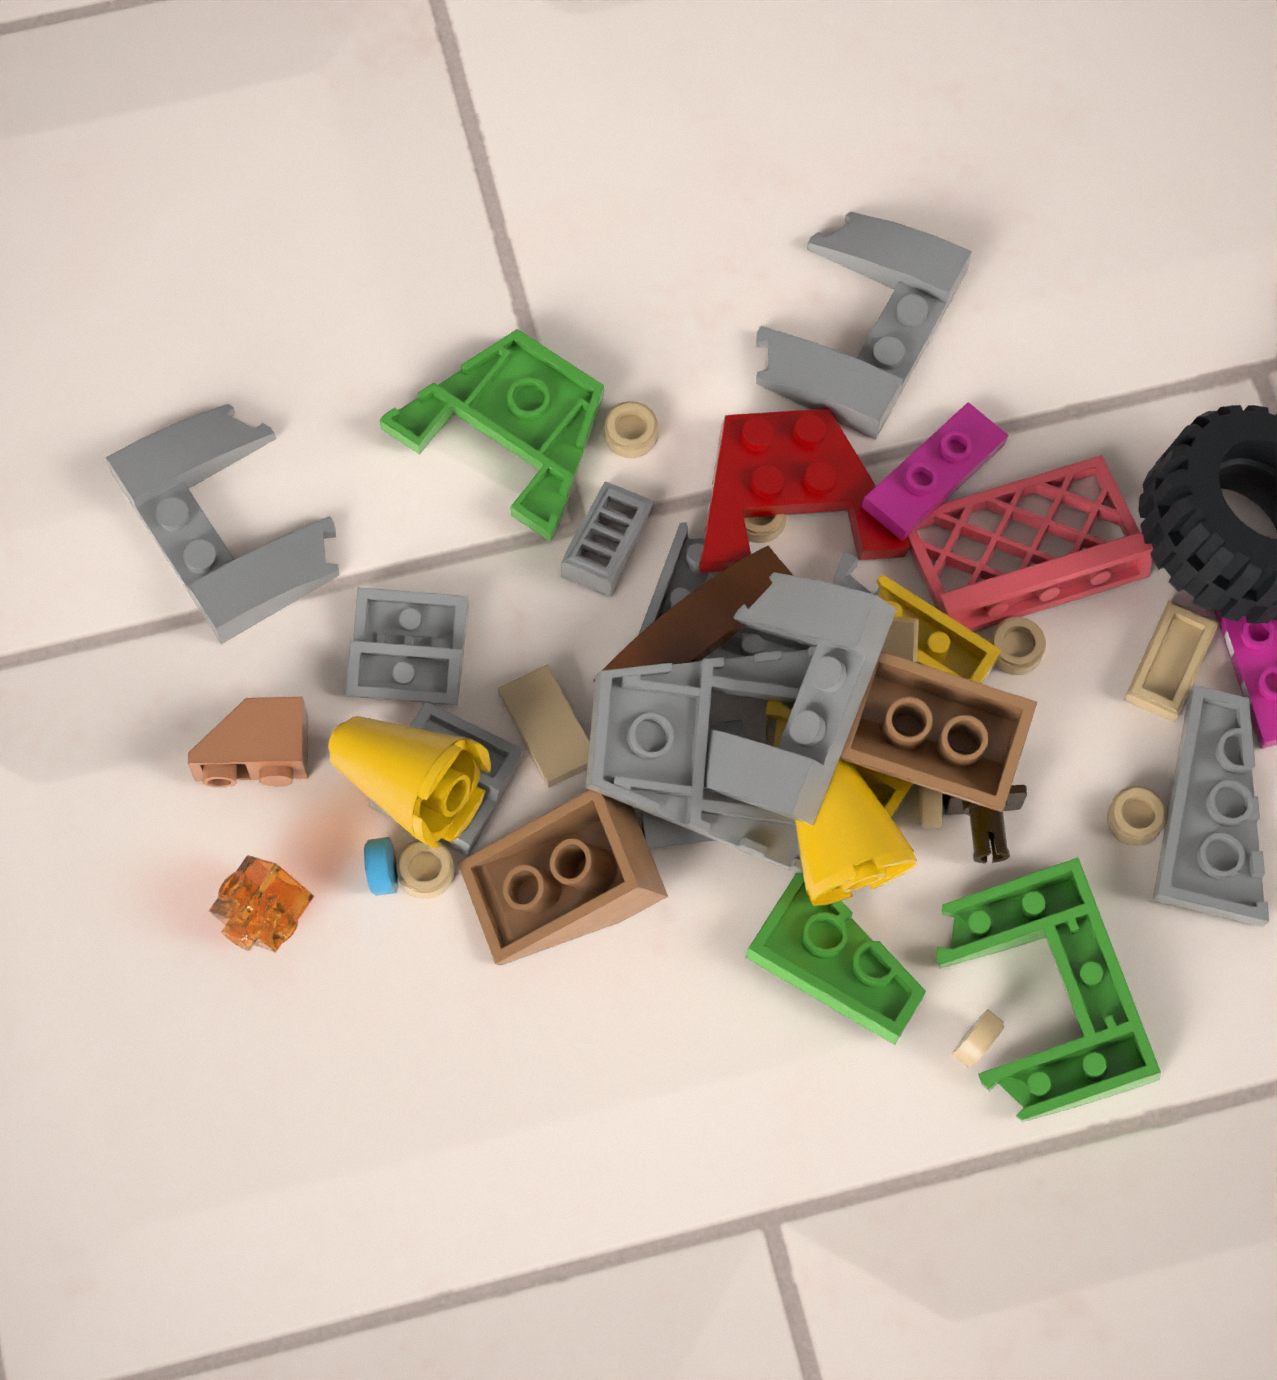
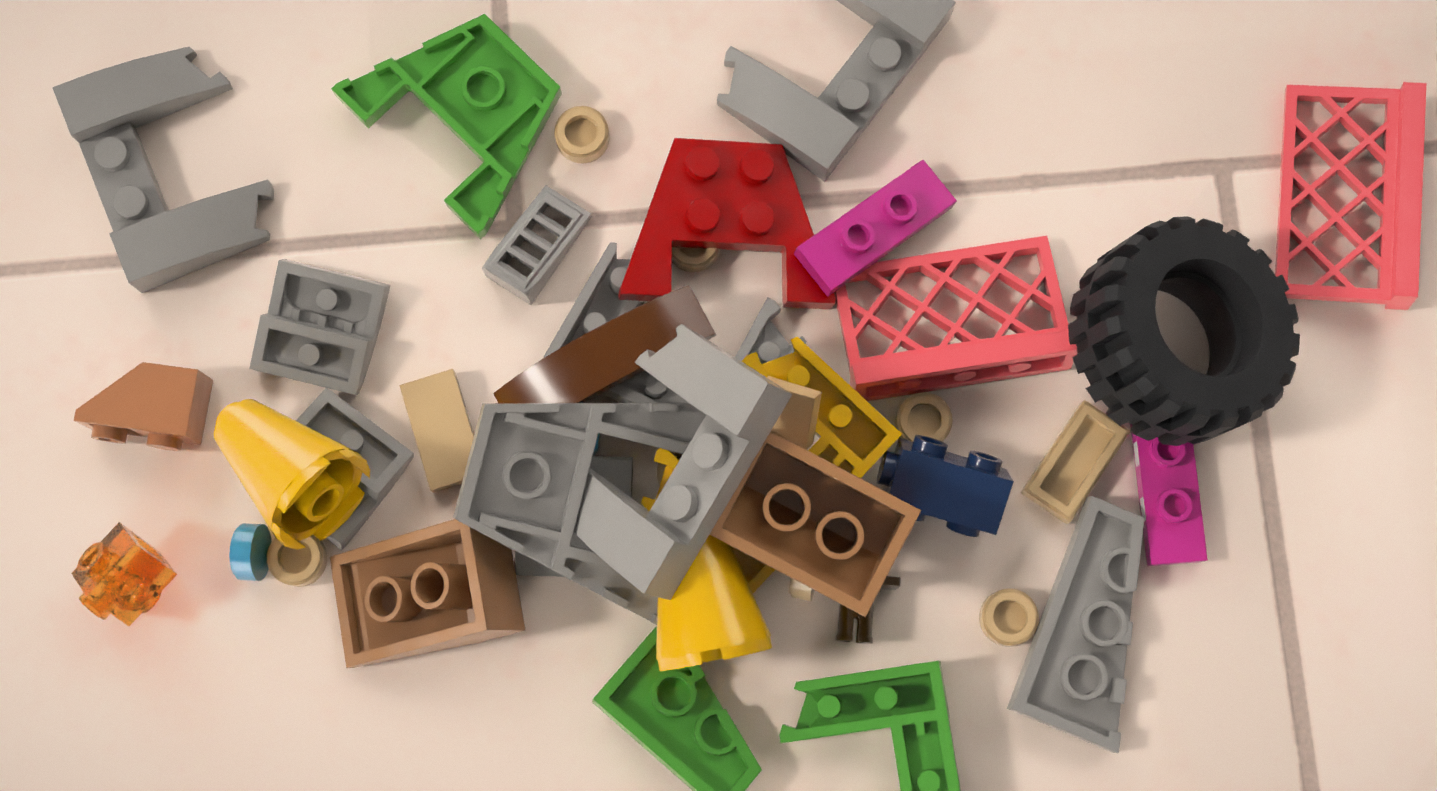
camera: 10 degrees right, 10 degrees up
(1072, 698) = (947, 486): none -> dark blue brick

